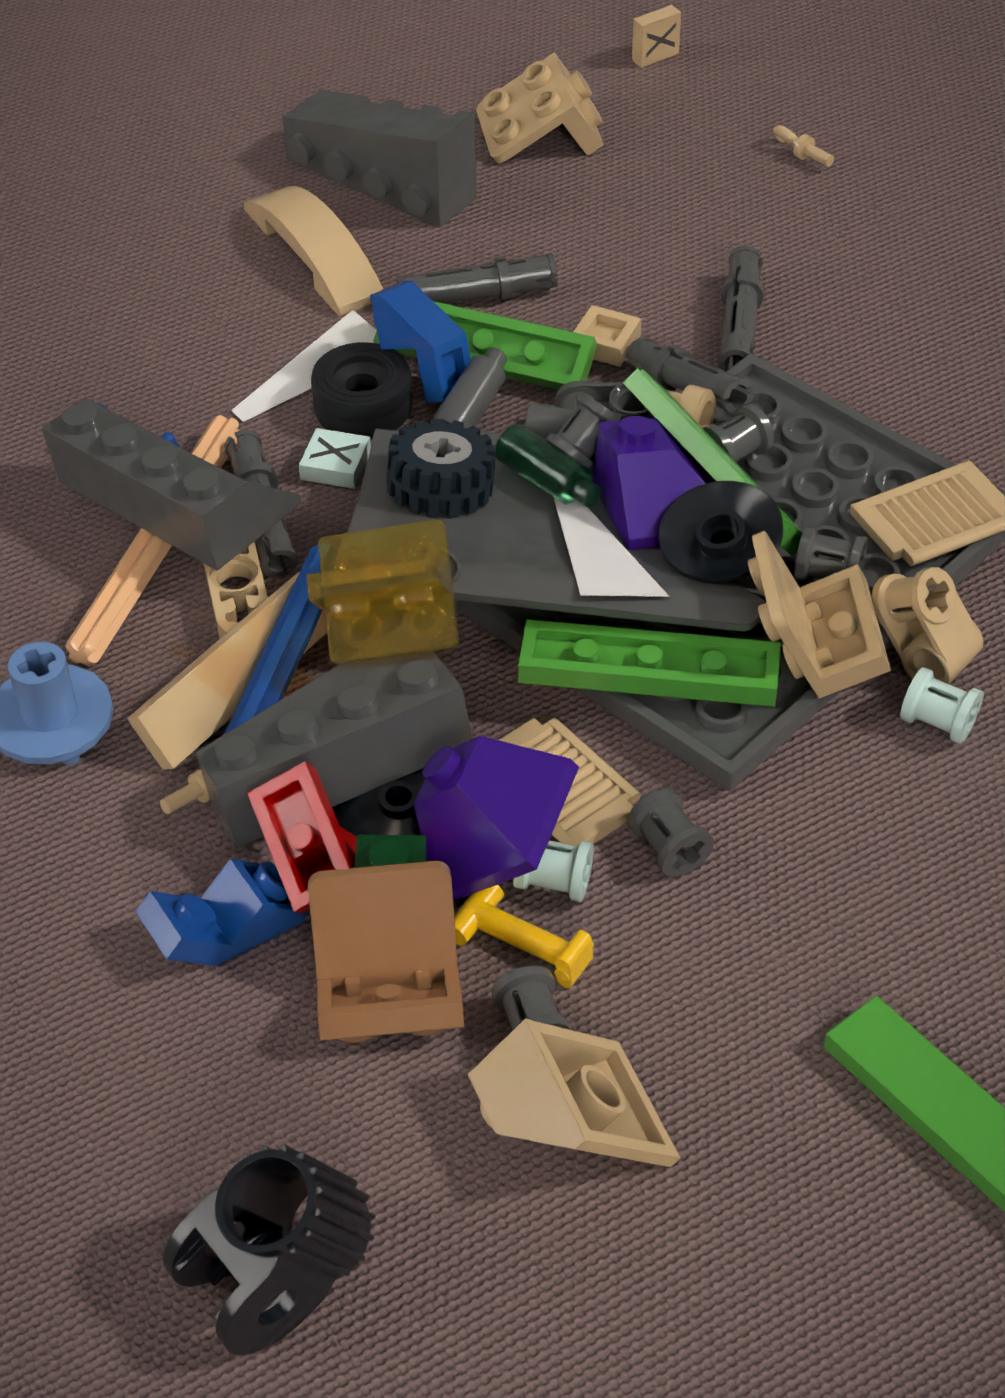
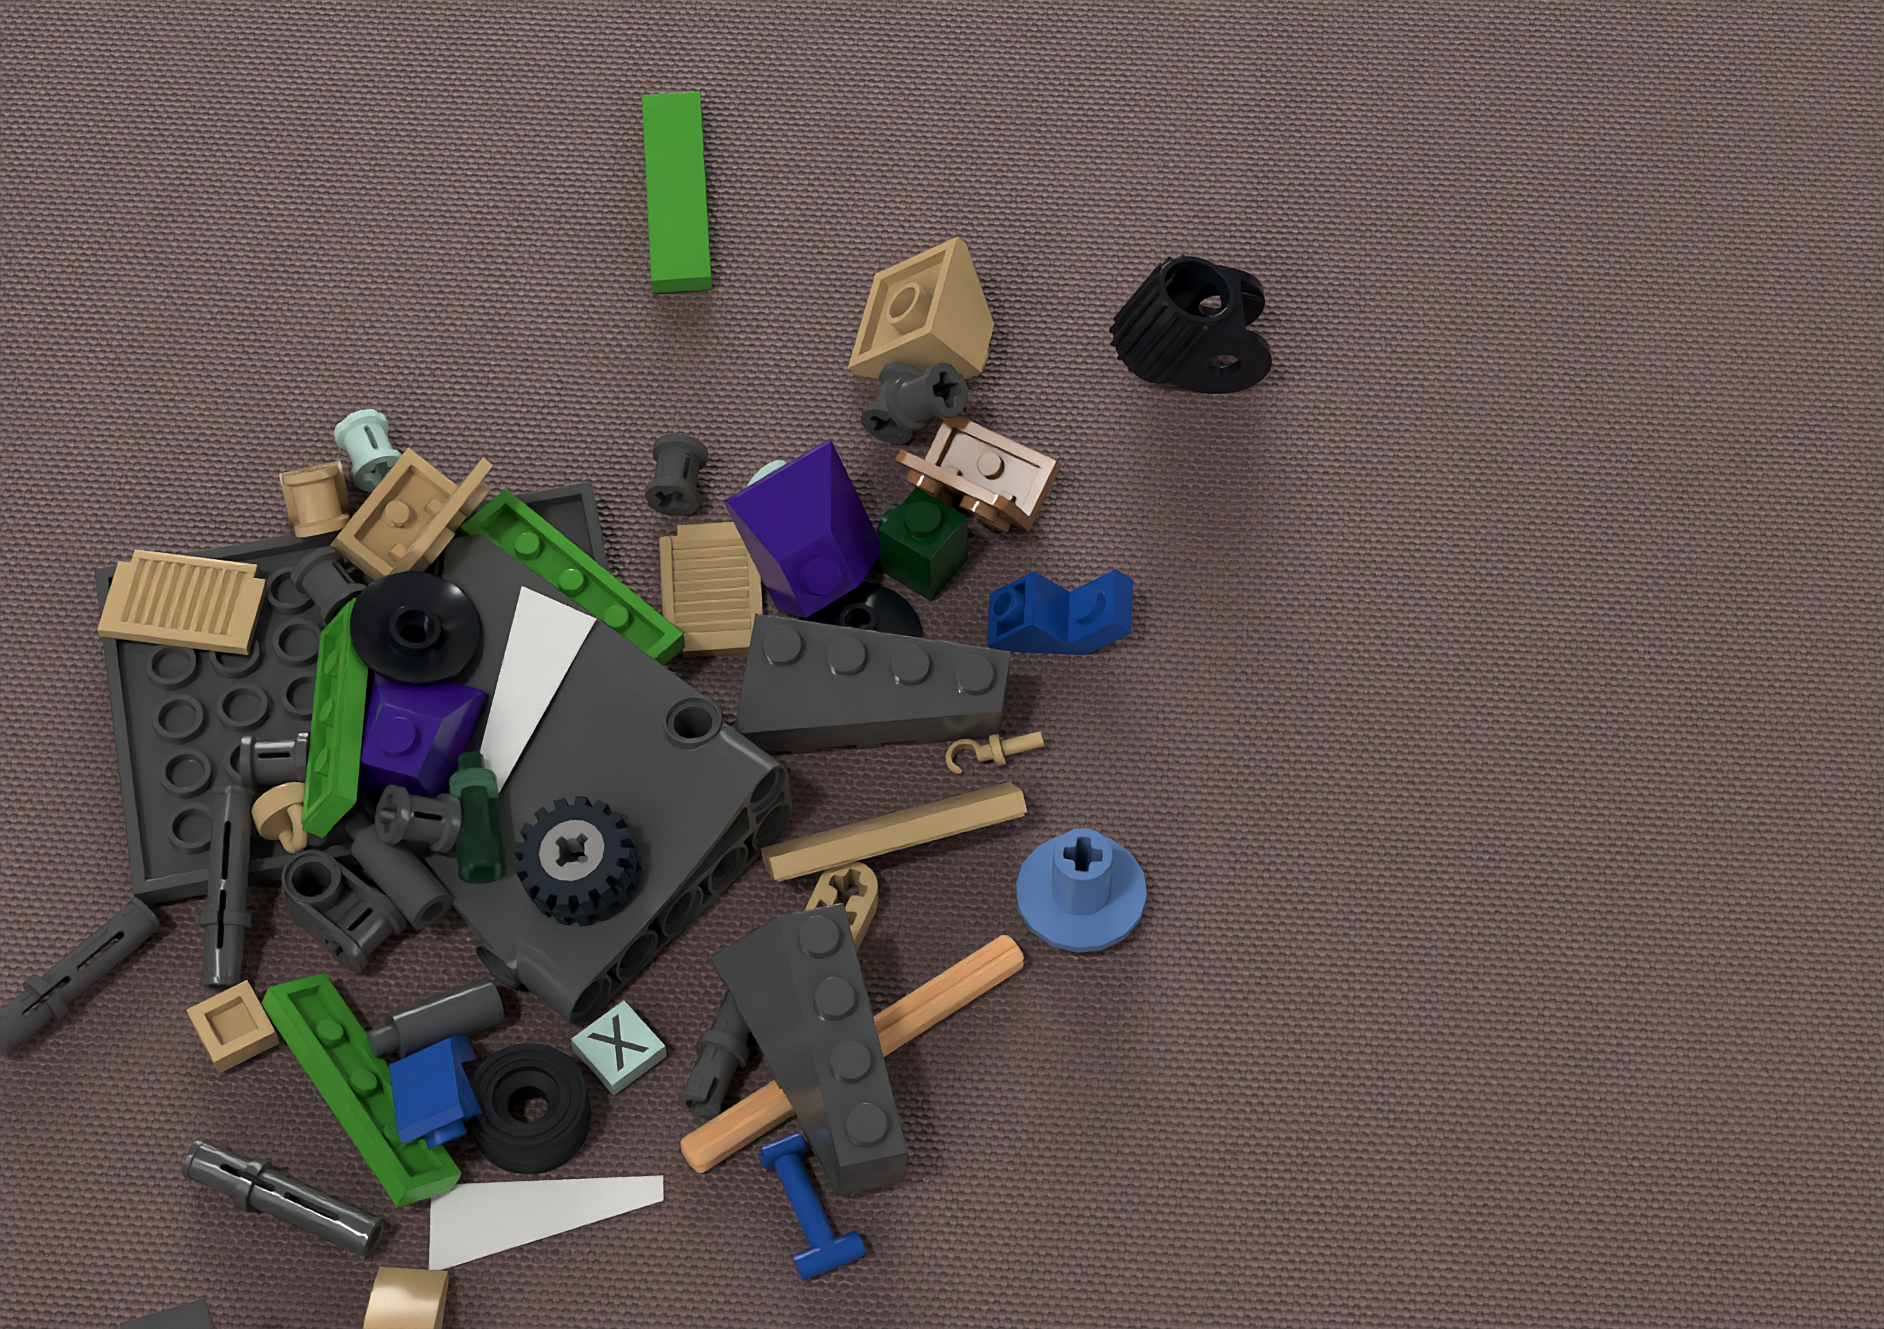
camera: 145 degrees left, 10 degrees up
(283, 648) = (847, 804): blue axle -> none
(301, 830) = (965, 591): slope -> none
(386, 592) = (757, 694): clear yellow bracket -> none
(481, 914) = (838, 430): yellow piece -> none
(487, 971) = (918, 400): none -> dark grey bush

